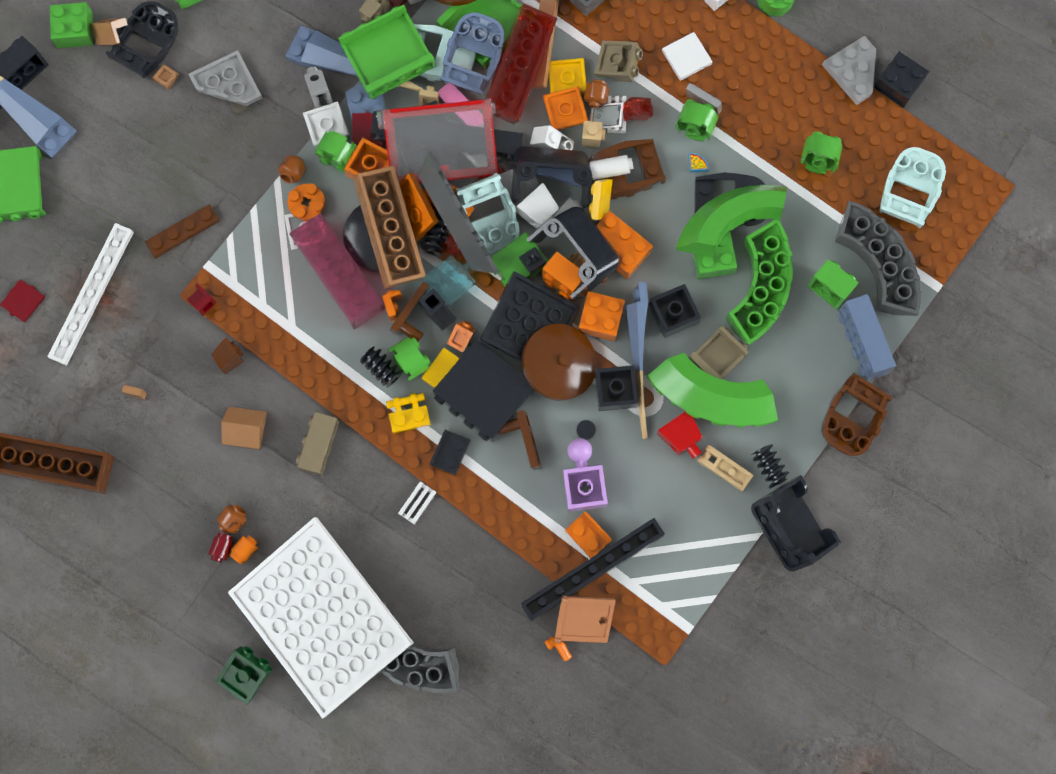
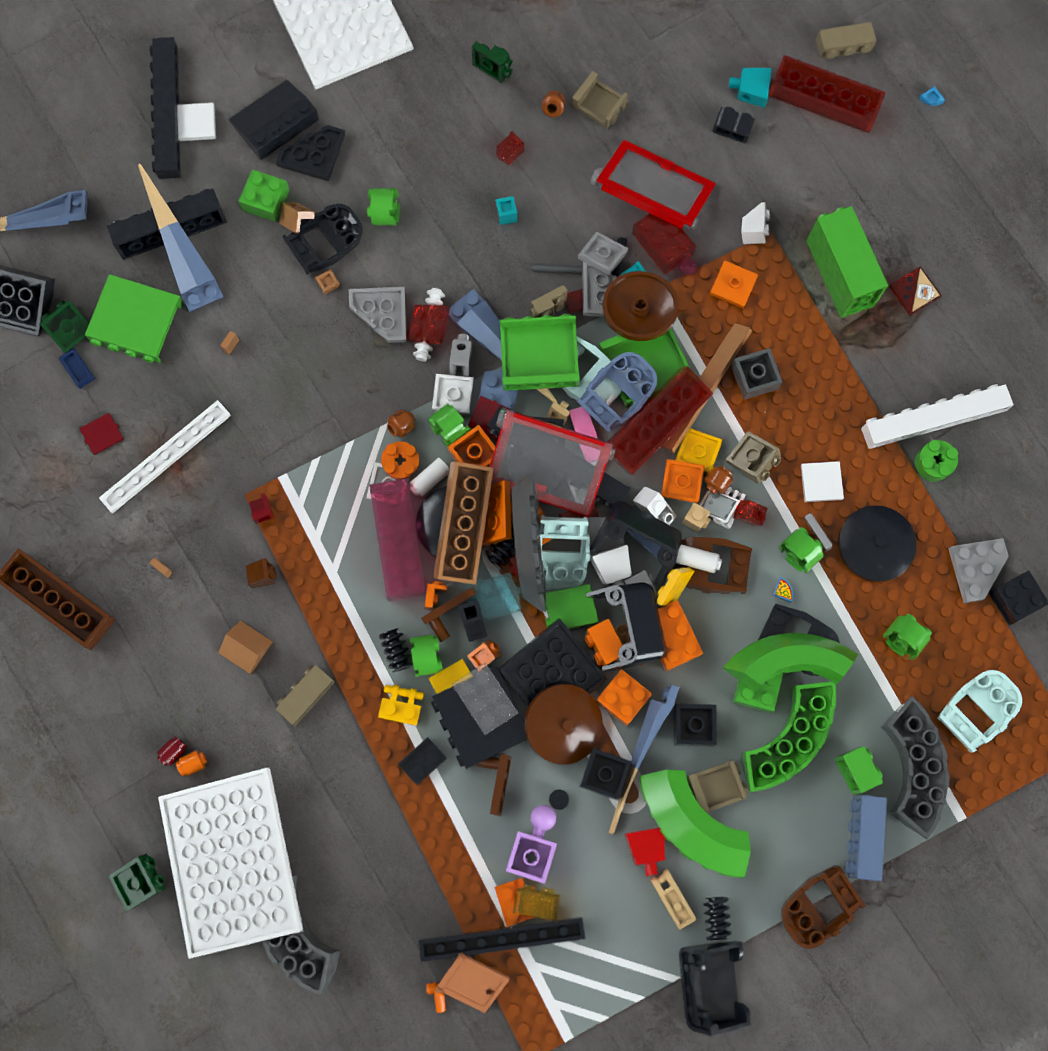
camera: 20 degrees right, 0 degrees up
(102, 168) = (229, 342): none -> medium nougat tile
(182, 231) = (275, 434): reddish brown plate -> none
(231, 519) = (194, 729): dark orange head -> none
(275, 73) = (428, 324): none -> clear red plate
(340, 204) = (429, 477): none -> white brick
(411, 498) = (355, 802): white tile -> none
(480, 370) = (485, 699): none -> clear plate
(532, 260) = (582, 615): black tile -> none
(608, 525) = (536, 903): none -> clear yellow brick
(759, 88) = (877, 543): none -> black dish

